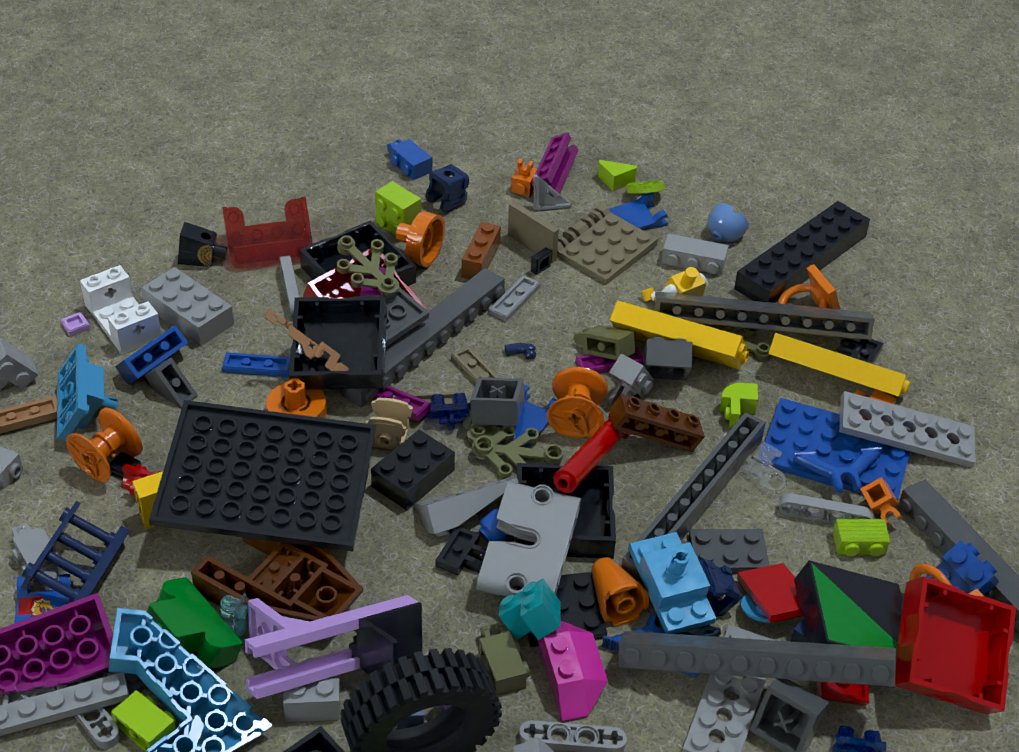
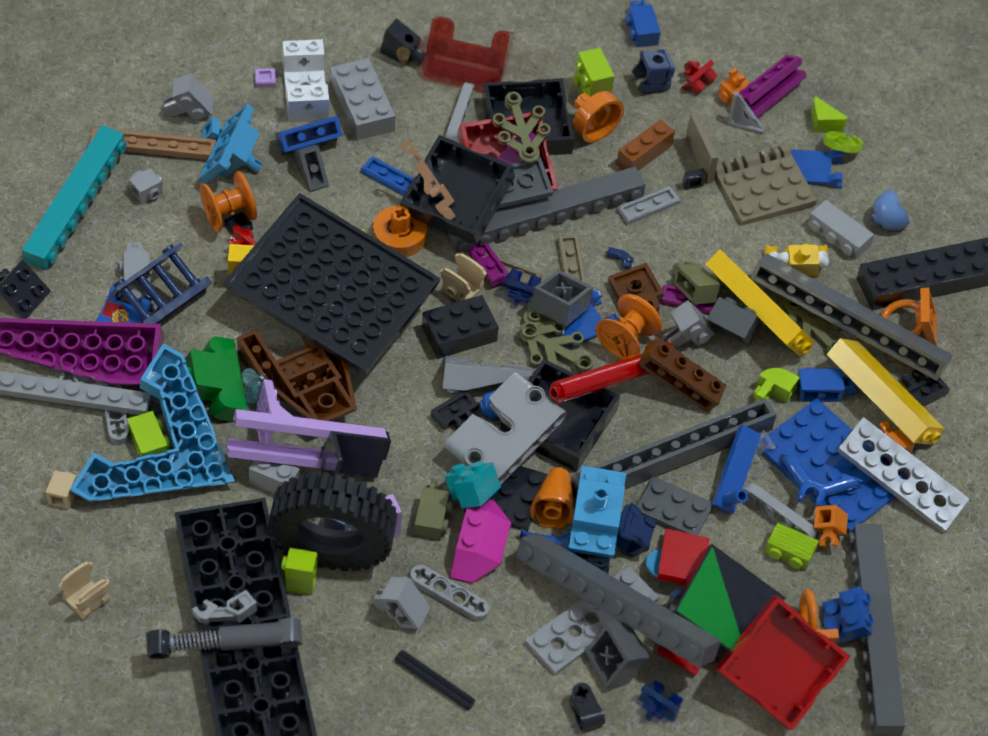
camera: 25 degrees right, 10 degrees up
(45, 387) = (211, 129): none -> dark azure tile
(488, 181) = (694, 82): none -> red hips
(551, 357) = (642, 276): none -> reddish brown plate
(767, 503) = (730, 486): none -> blue piece
(779, 383) = (824, 384): none -> blue brick

